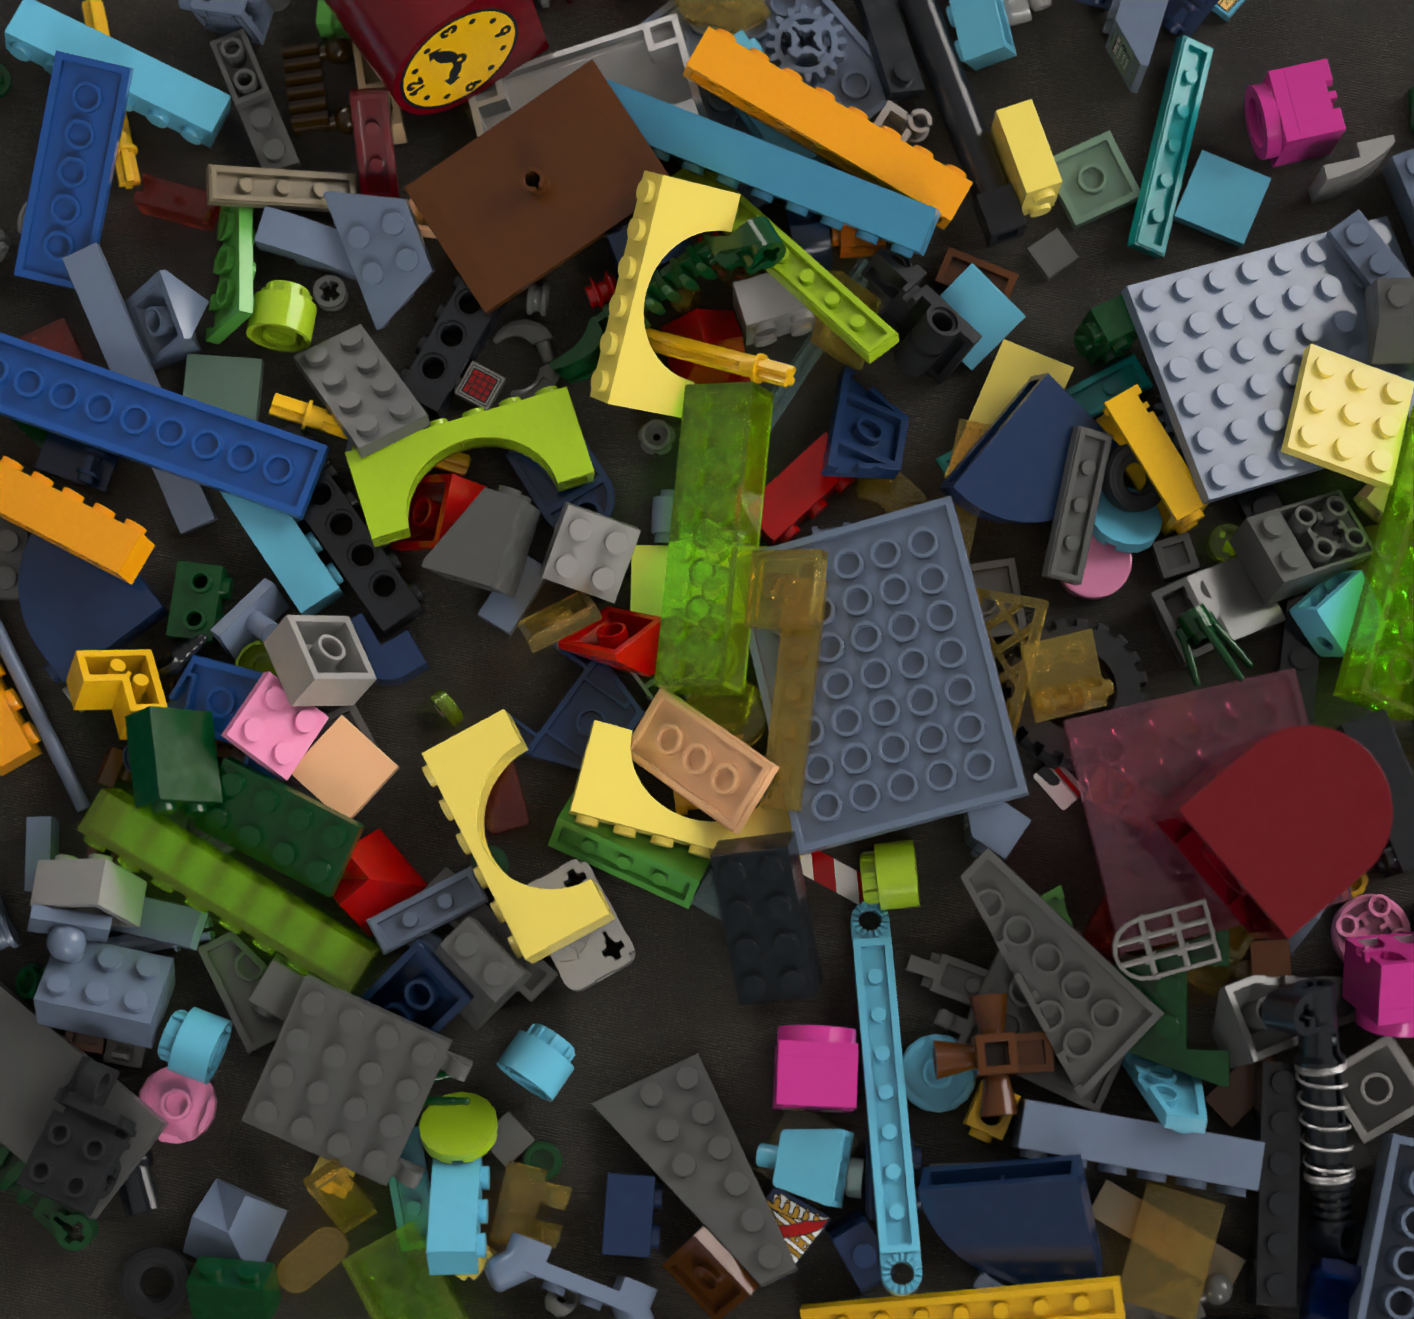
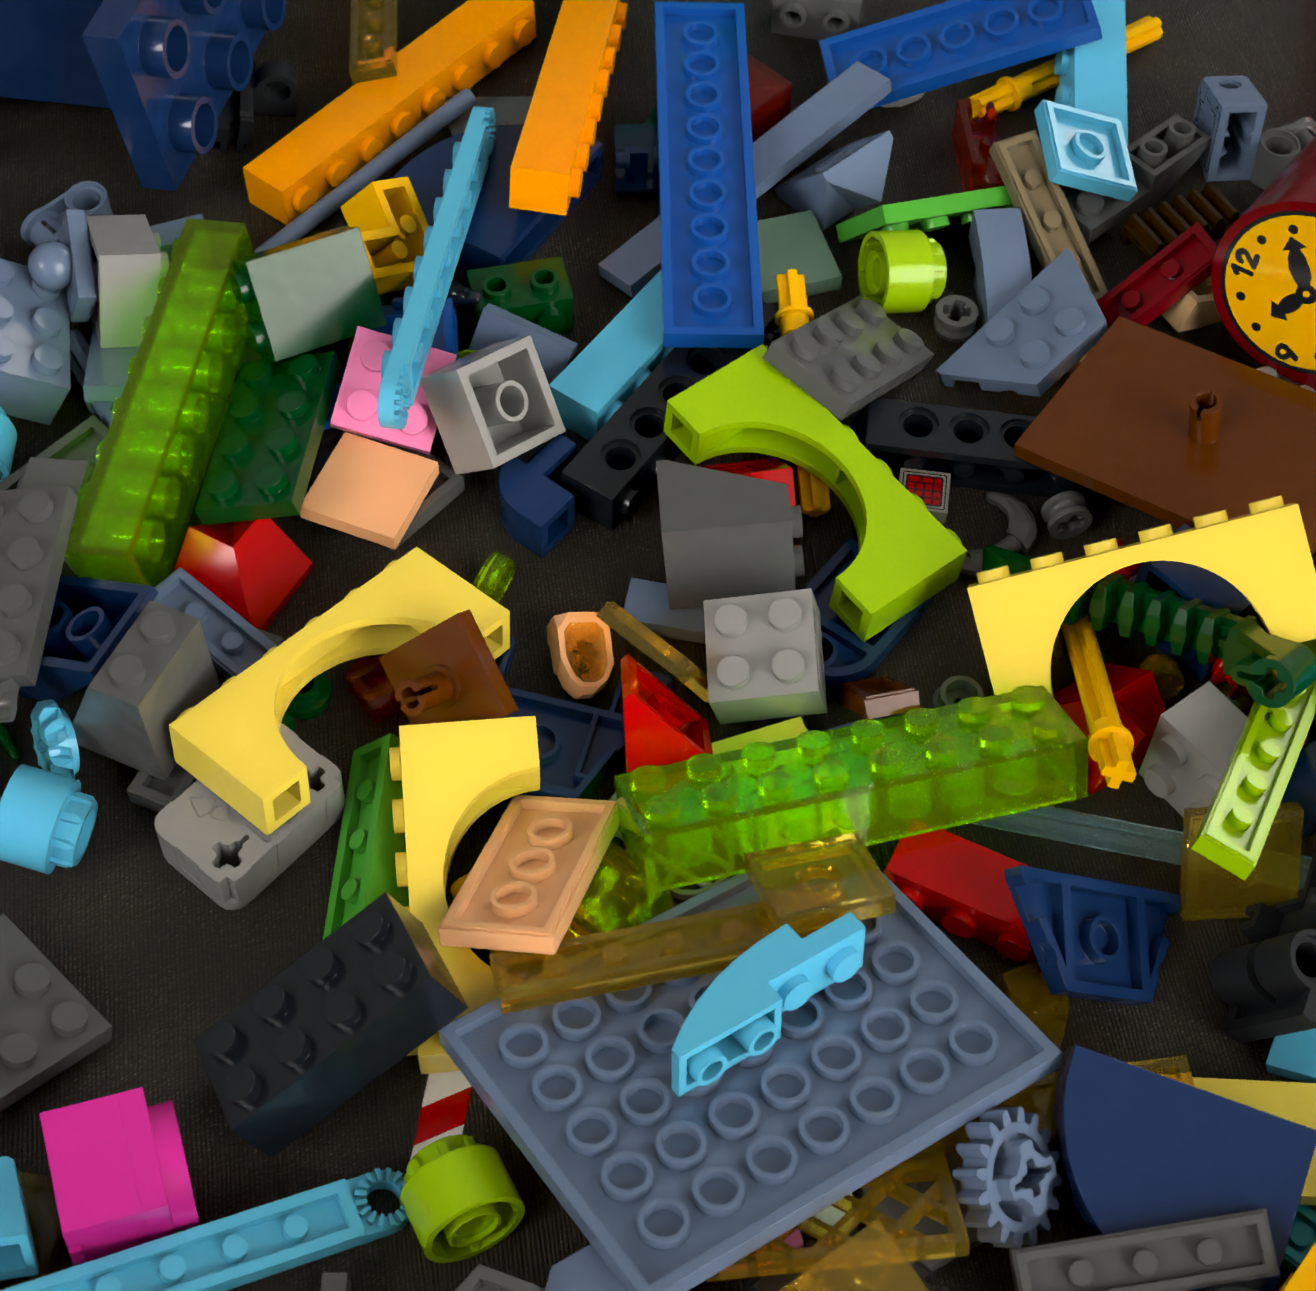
camera: 65 degrees right, 25 degrees down
(192, 662) = (434, 270): none -> medium azure plate
(236, 134) = (1085, 150): none -> medium azure tile
(481, 1040) = (54, 739): none -> medium azure gear
(533, 671) = (580, 652): none -> rock
(541, 768) = (448, 675): none -> reddish brown tile
(645, 491) = (877, 696): none -> reddish brown tile
(861, 668) = (746, 1001): none -> medium azure slope
(1002, 557) = (1007, 1177): none -> sand blue gear

